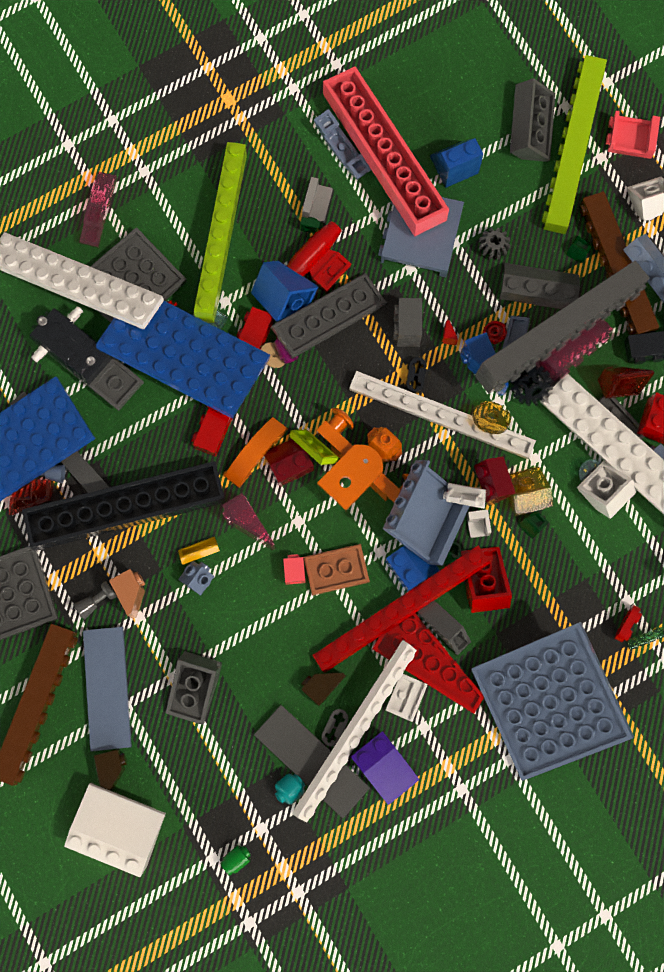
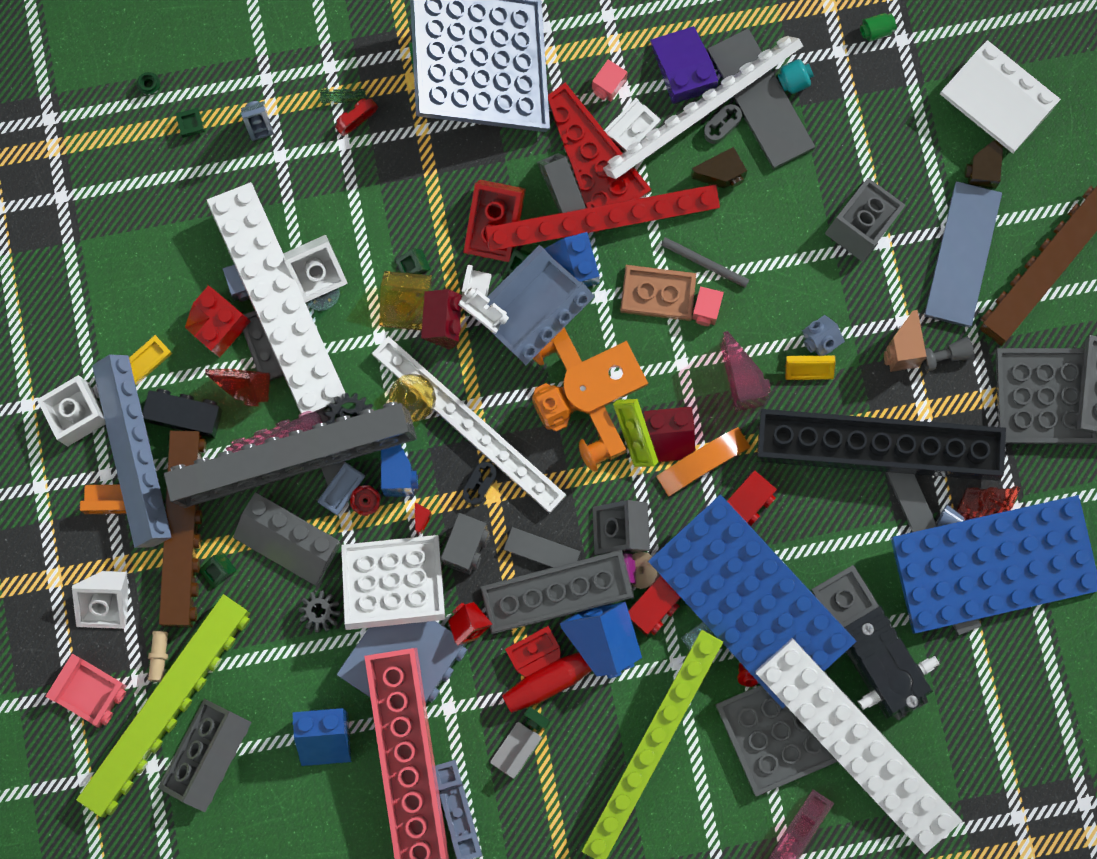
camera: 160 degrees left, 0 degrees up
(299, 378) = (621, 527): none -> dark grey slope
(308, 607) = (705, 262): none -> dark grey bar
(352, 344) = (539, 549): none -> dark grey tile
(385, 268) = (468, 623): none -> red slope
(439, 728) = (609, 81): none -> coral brick
(450, 276) = (392, 582): none -> white plate
(594, 174) = (158, 656): none -> tan pin

